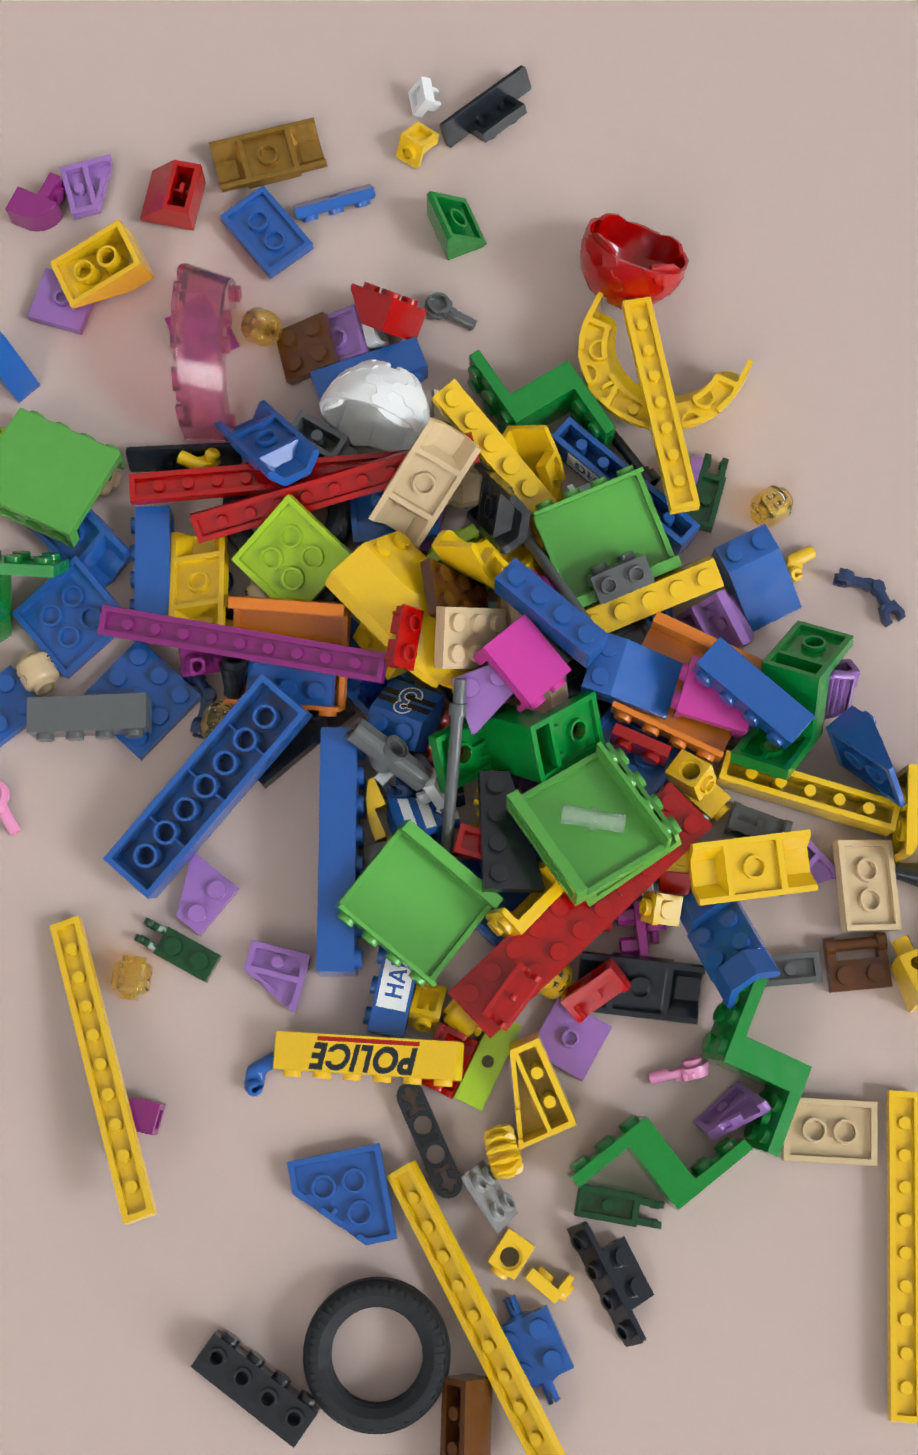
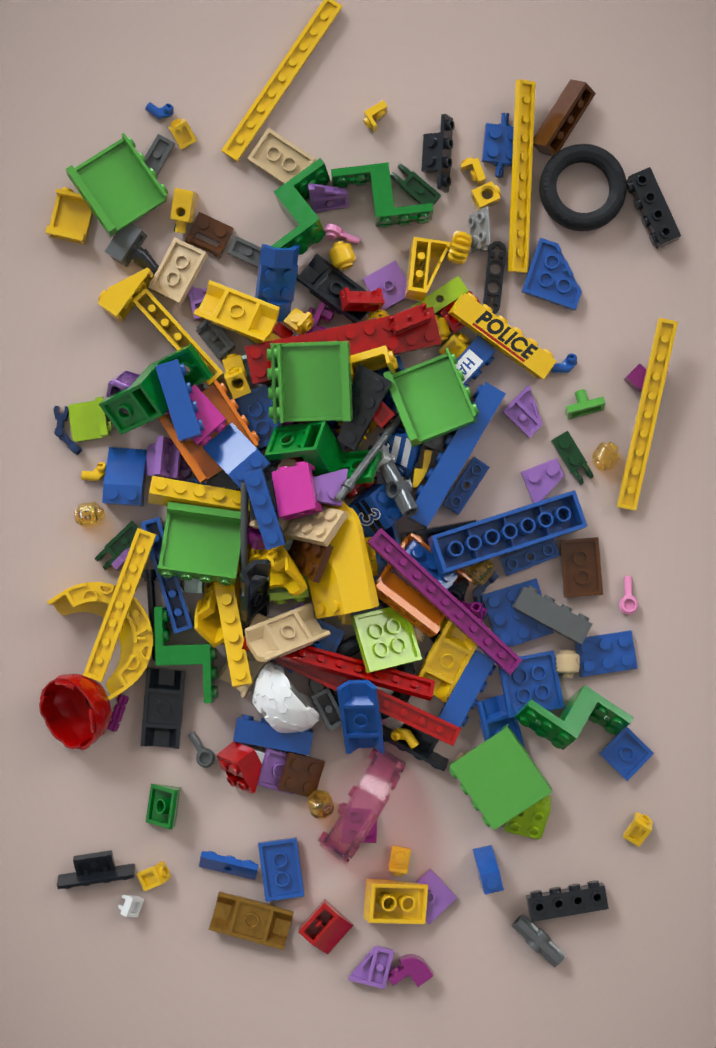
camera: 150 degrees left, 10 degrees up
(85, 806) = (581, 567): none -> reddish brown plate
(124, 319) = (399, 860): none -> yellow bracket
(166, 769) = (518, 561): none -> blue tile
(199, 1030) = (584, 405): none -> bright green tile
(302, 845) = (459, 495): none -> blue tile
(407, 627) = (348, 548): red hinge -> none
(526, 329) = (163, 708): none -> black piece
(578, 296) = (118, 712): none -> magenta axle
(593, 818) = (311, 381): clear pin -> none
(619, 578) = (207, 516): dark grey bracket -> none
(649, 749) = (261, 421): red plate -> none
(659, 1042) = (342, 255): none -> yellow head
(740, 1285) = (375, 112): none -> yellow bracket
(854, 616) = (89, 421): none -> lime bracket
(863, 752) = (132, 343): blue slope -> none

